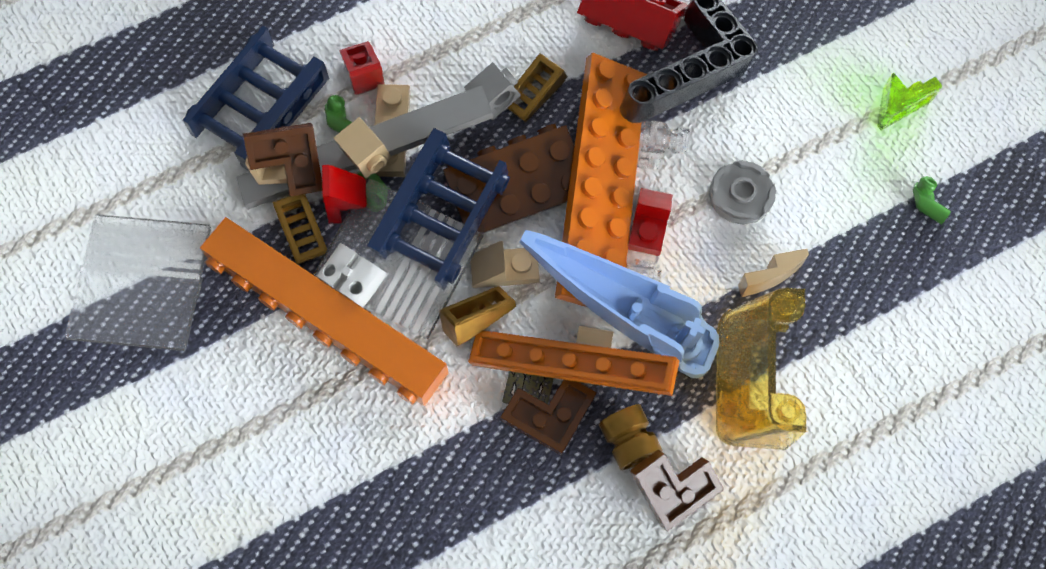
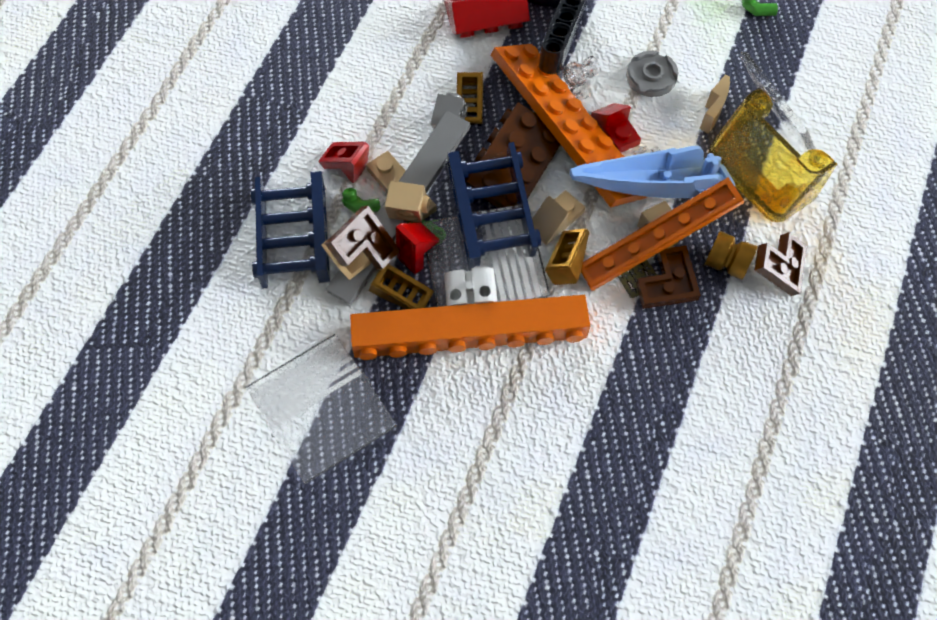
camera: 40 degrees left, 5 degrees down
(817, 327) = (780, 106): none -> clear piece

